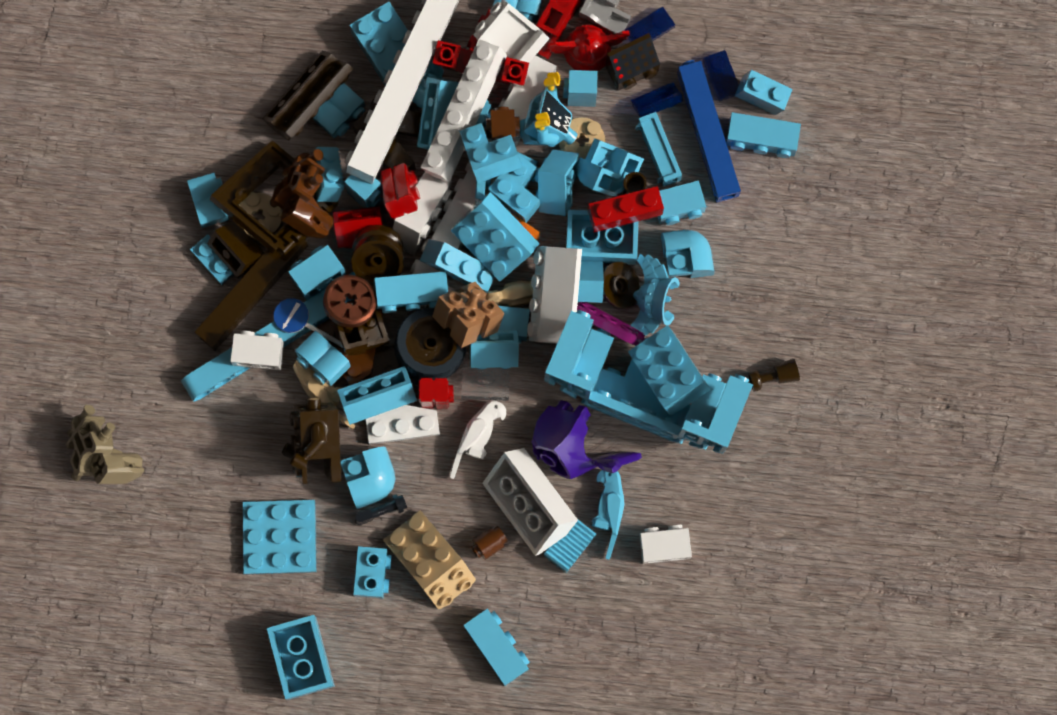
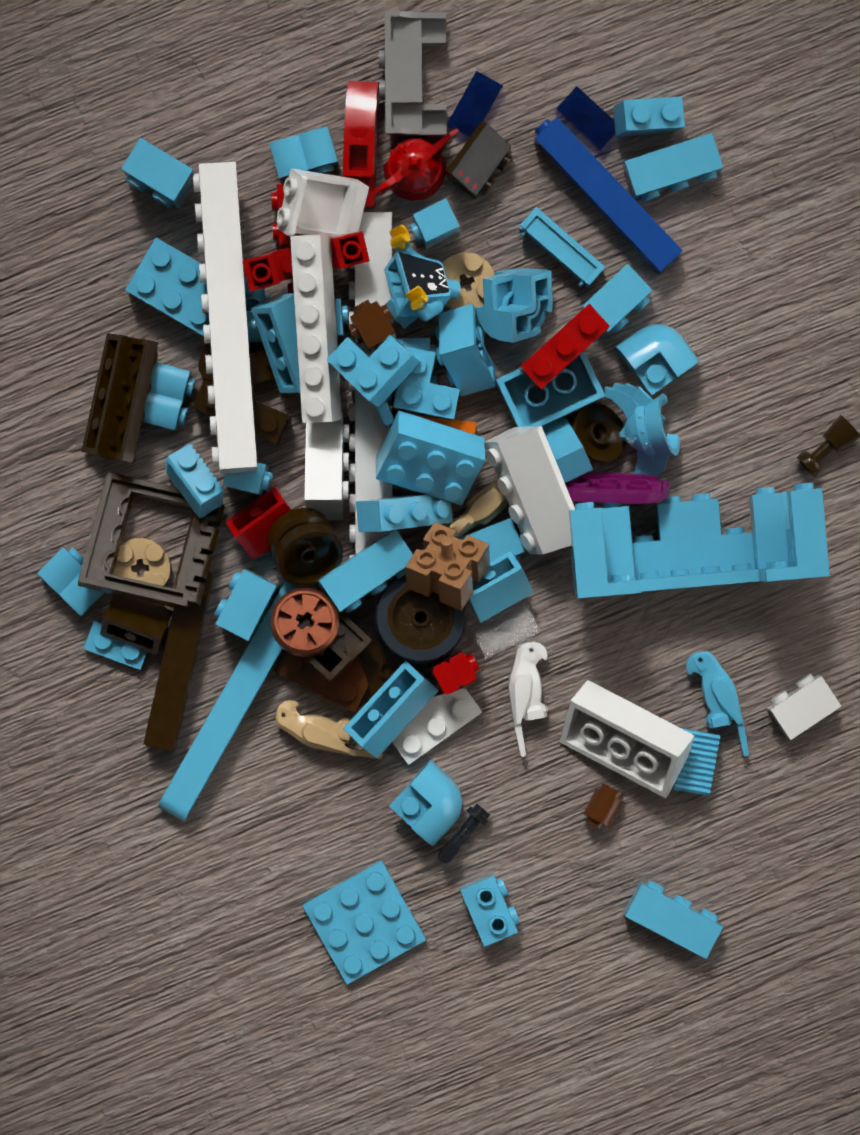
camera: 20 degrees left, 10 degrees up
(95, 452) = (108, 941): dark tan piece -> none
(257, 351) = (228, 731): white brick -> none
(292, 316) = (246, 668): blue piece -> none
(296, 194) = (176, 527): reddish brown piece -> none
(300, 657) = (462, 1046): medium azure brick -> none
(314, 438) = (348, 798): dark brown torso -> none
(322, 359) = (306, 700): medium azure brick -> none
(399, 190) = (291, 461): red brick -> none
(430, 560) = (546, 861): tan bracket -> none
(560, 443) = (627, 654): dark purple hips -> none
(634, 182) = (558, 312): dark brown piece -> none
(657, 100) = (528, 190): clear blue plate -> none
(669, 370) = (711, 512): medium azure brick -> none

